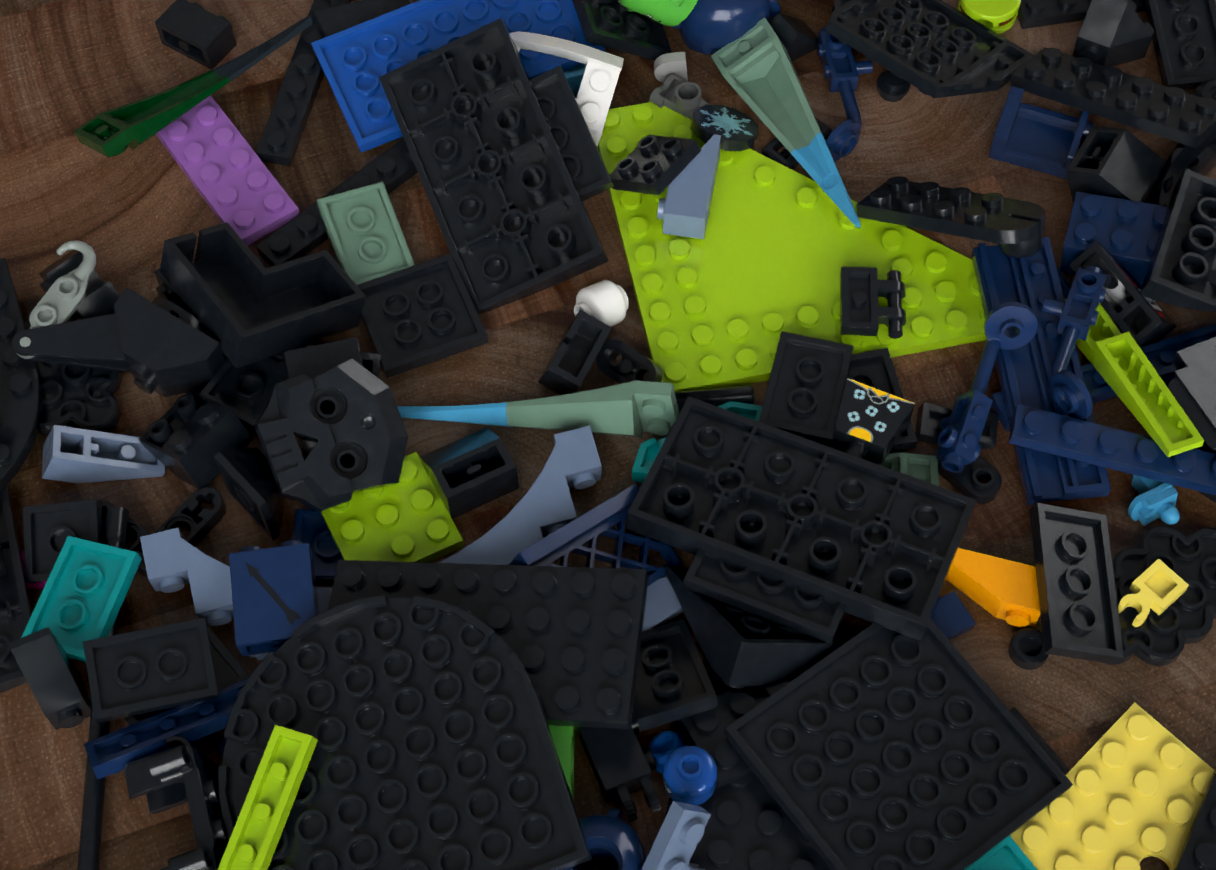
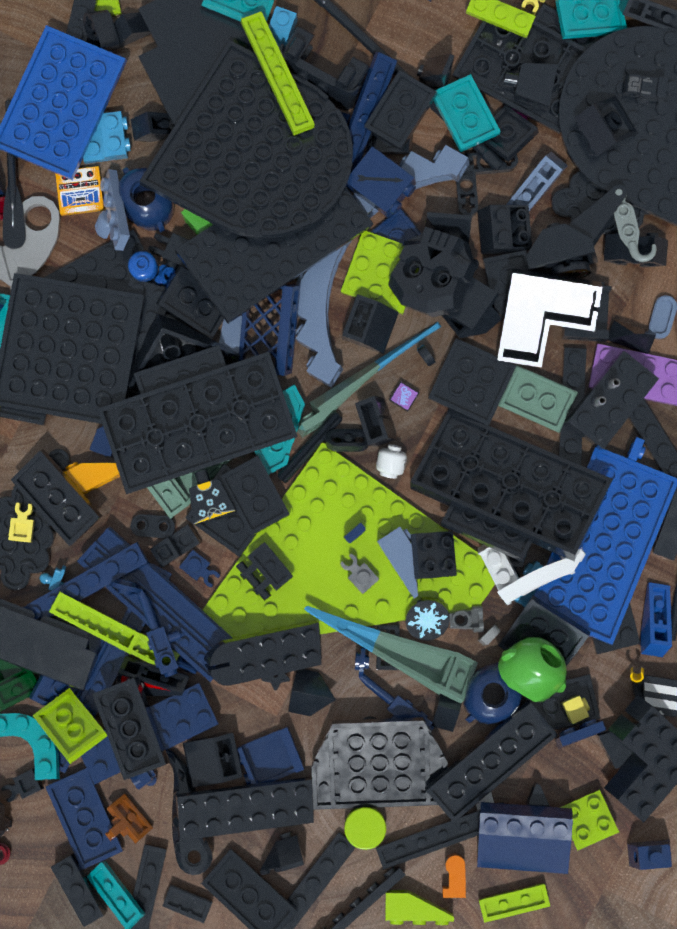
camera: 140 degrees right, 25 degrees up
(141, 215) = (662, 316): none -> sand blue tile
(191, 213) = (631, 336): none -> black slope
(290, 158) = (611, 400): none -> black piece
(323, 112) = (636, 449): none -> blue plate
(439, 382) = (426, 356): none -> black tile
(513, 366) = (404, 396): none -> tile
(722, 257) = (355, 533): none -> dark blue tile
(758, 220) = (361, 576): none -> flat silver plate
(932, 157) = (309, 693): none -> black slope
(947, 381) = (197, 567): none -> dark blue plate
(965, 425) = (169, 547): dark blue piece -> none

